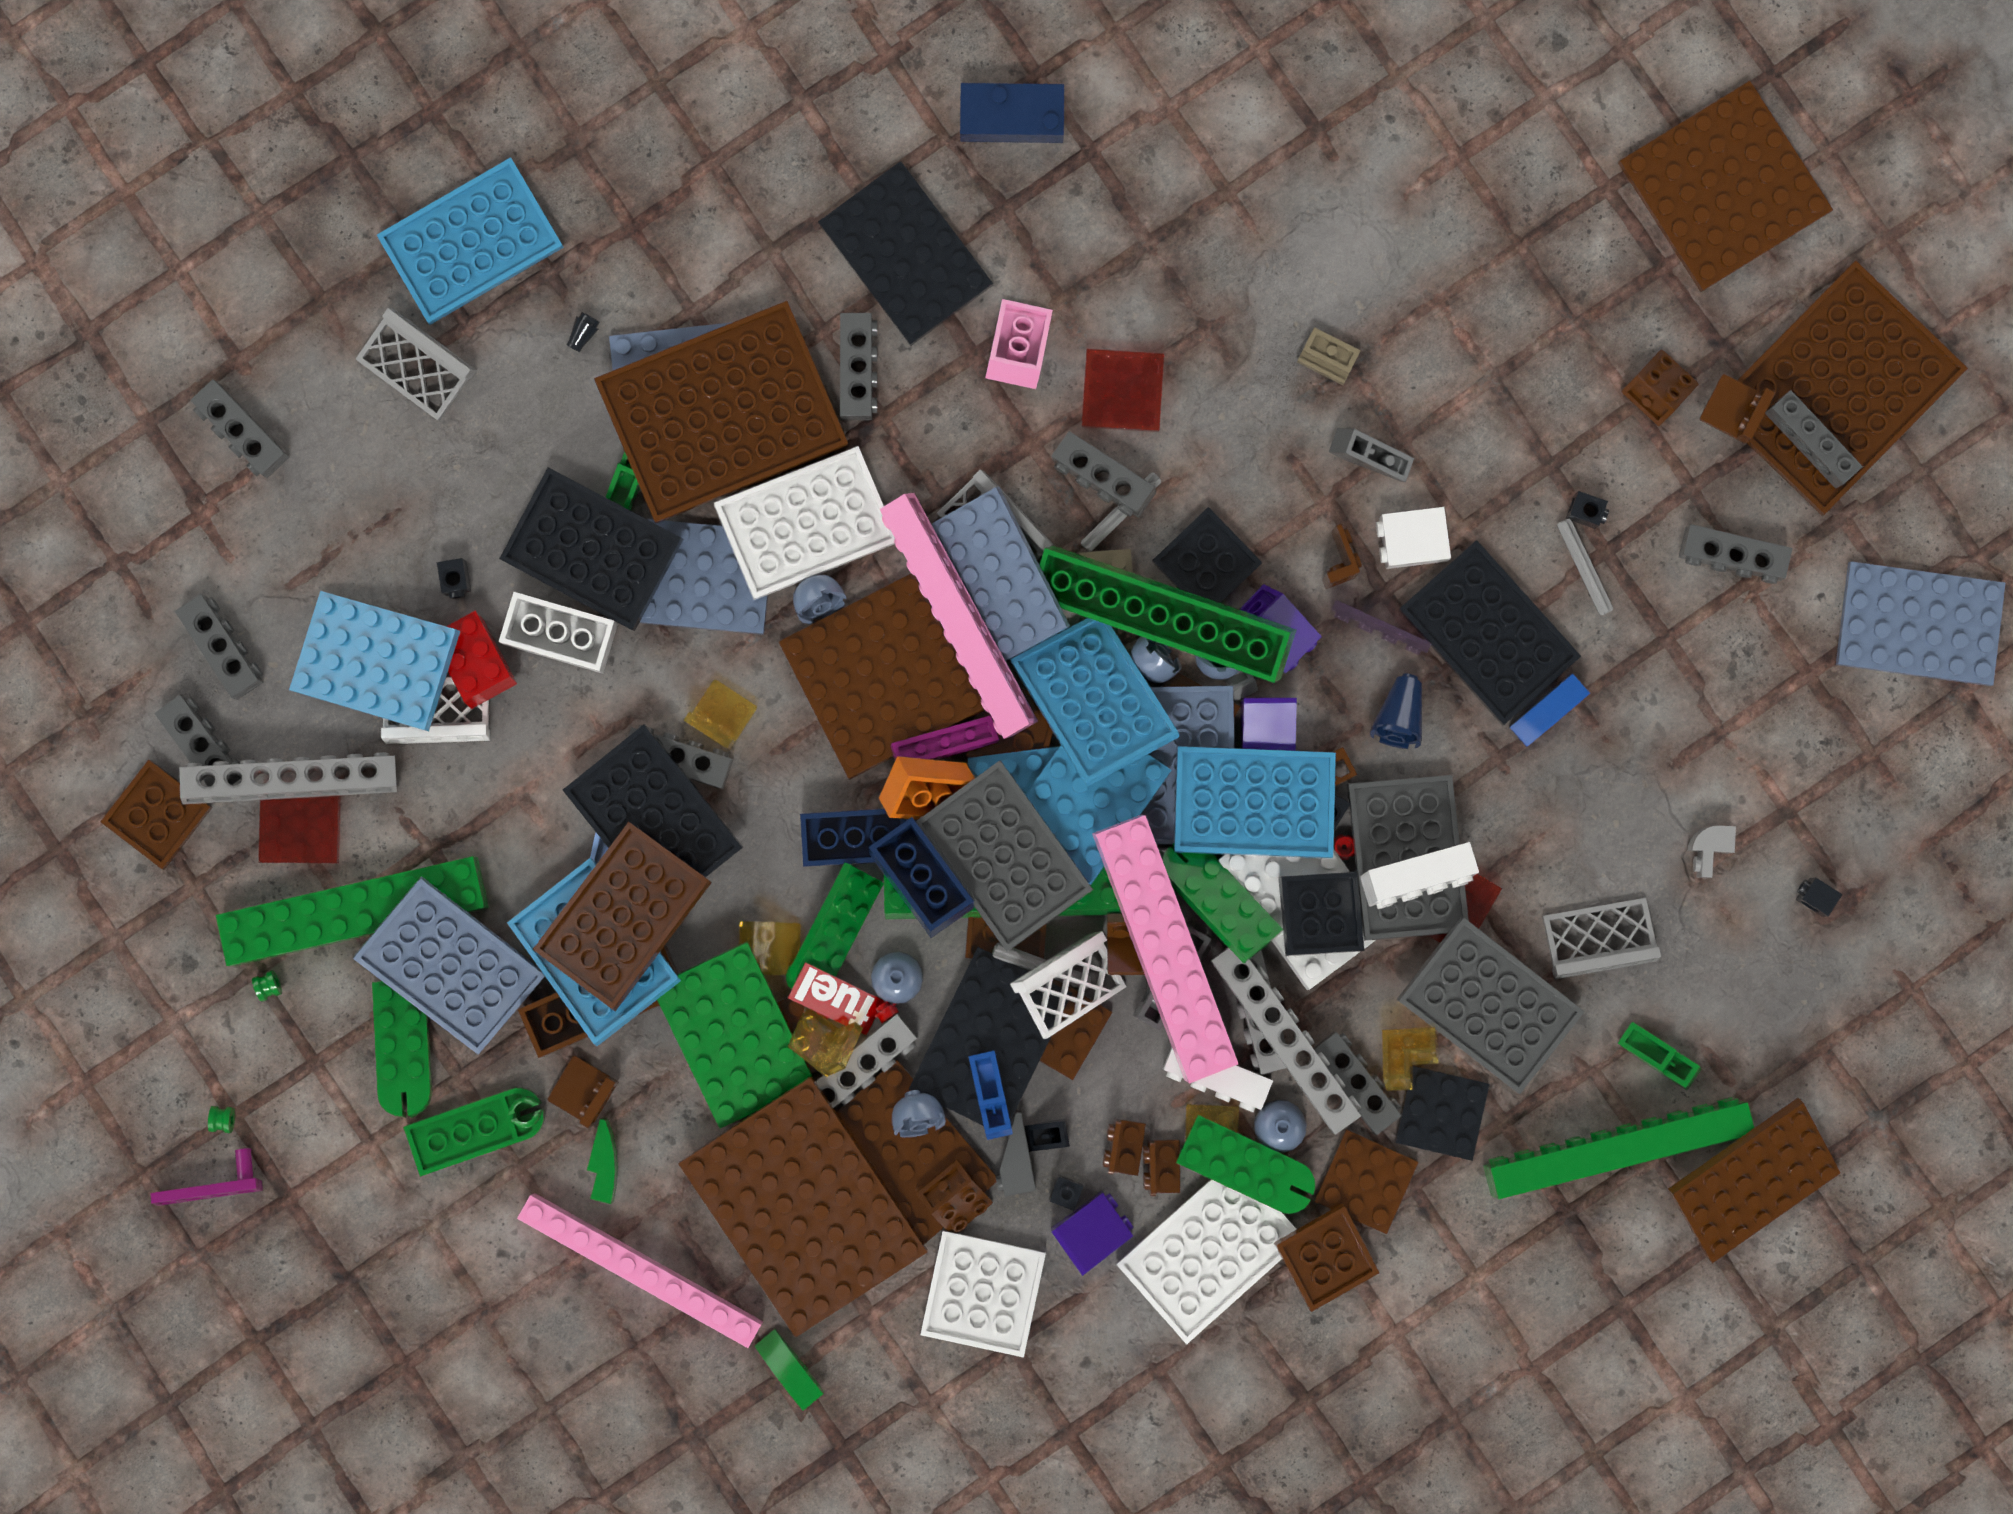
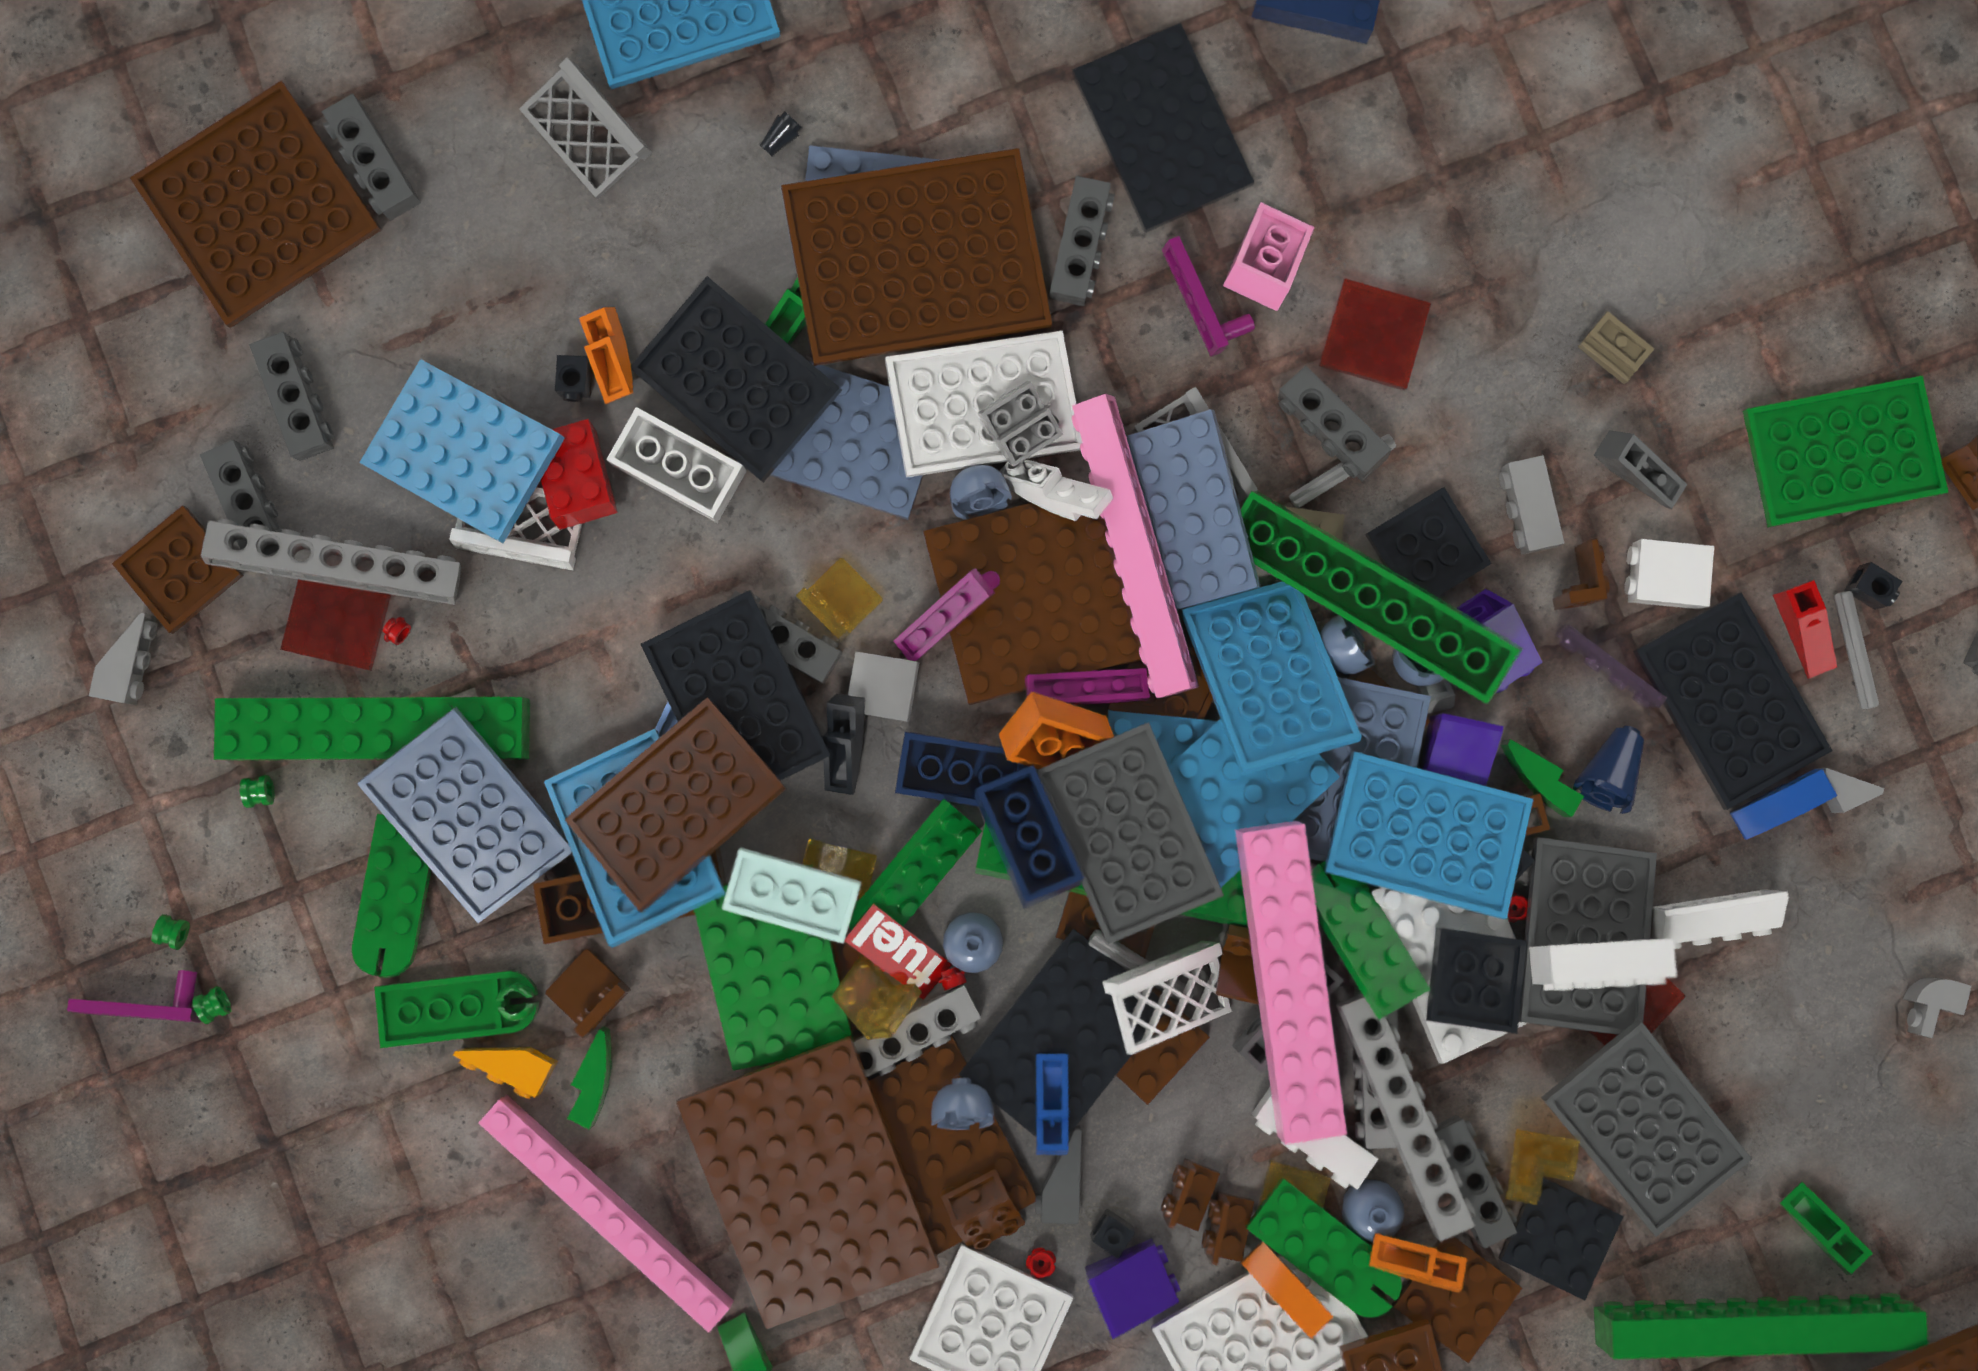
camera: 10 degrees right, 0 degrees up
(129, 908) = (122, 668): none -> light grey slope
(150, 490) = (255, 204): none -> reddish brown plate
(270, 1172) = (211, 1005): none -> green wheel
(352, 824) = (396, 630): none -> red plate
(479, 551) = (608, 353): none -> orange slope
(540, 1166) = (517, 1066): none -> light orange slope
(735, 969) = (791, 895): none -> light aqua plate
(752, 834) = (845, 743): none -> black slope
(773, 780) = (884, 684): none -> light grey slope
(813, 707) = (947, 613): none -> magenta piece
(839, 533) = (1020, 423): none -> light grey slope
(880, 585) = (1060, 495): none -> white slope
(986, 420) = (1213, 334): none -> magenta piece
(1018, 1226) = (1041, 1271): none -> red plate
(1047, 1135) = (1106, 1162): black slope -> none
(1219, 1205) = (1287, 1289): none -> orange slope
(1285, 506) = (1531, 505): none -> light grey brick
(1323, 1158) = (1418, 1263): none -> orange slope
(1342, 733) = (1542, 778): none -> green slope
(1513, 817) = (1719, 917): none -> white slope
(1539, 558) = (1808, 627): none -> red slope
(1540, 401) = (1845, 451): none -> green plate
(1600, 686) = (1850, 791): none -> light grey slope
(1607, 960) = (1778, 1103): light grey fence -> none

